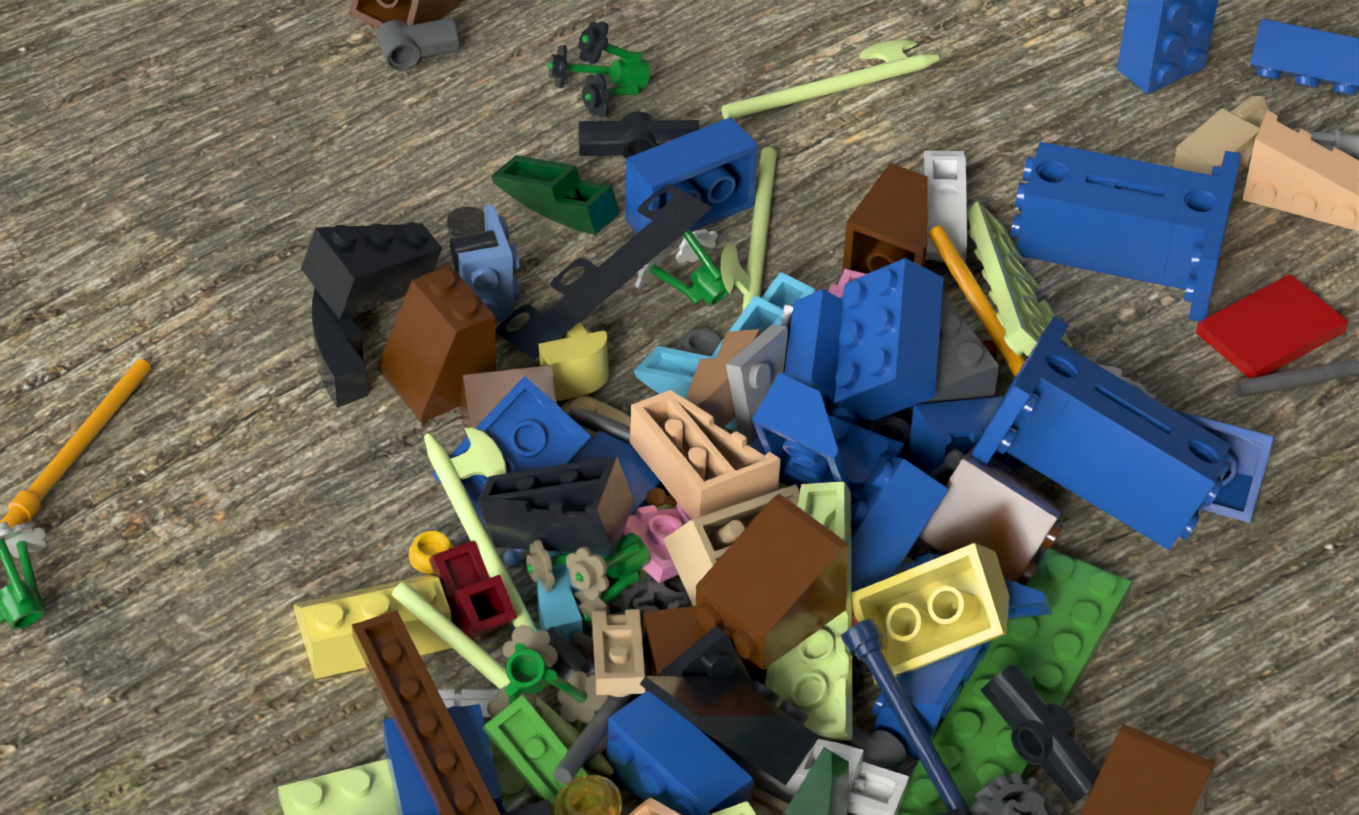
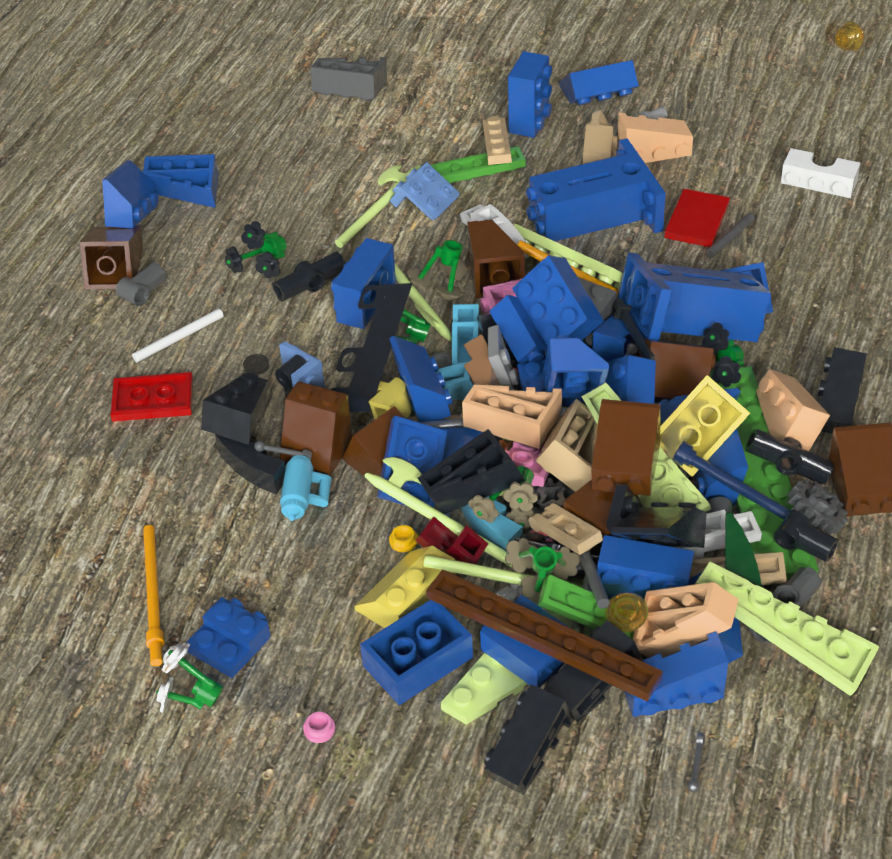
camera: 30 degrees left, 0 degrees up
(108, 729) = (319, 727): none -> bright pink plate
(109, 554) = (229, 636): none -> blue plate
(299, 195) = (152, 396): none -> red tile
(299, 703) = (416, 651): none -> blue brick
(362, 409) = (297, 488): none -> medium azure piece
(403, 373) = (260, 446): none -> dark grey hinge
(405, 133) = (177, 335): none -> white bar
(558, 193) = (293, 324): dark green slope -> none
(626, 347) = (421, 380): none -> blue slope
(833, 200) = (451, 266): none -> plant
(906, 97) = (426, 190): none -> medium blue bracket
(986, 402) = (622, 312): none -> pearl dark grey sword
(1017, 95) = (477, 166): none -> bright green plate
(1073, 70) = (496, 140): none -> tan plate
(1109, 548) = (728, 357): none -> black plant
(1111, 670) = (790, 409): none -> light nougat wedge
(1218, 685) = (841, 387): none -> black wedge

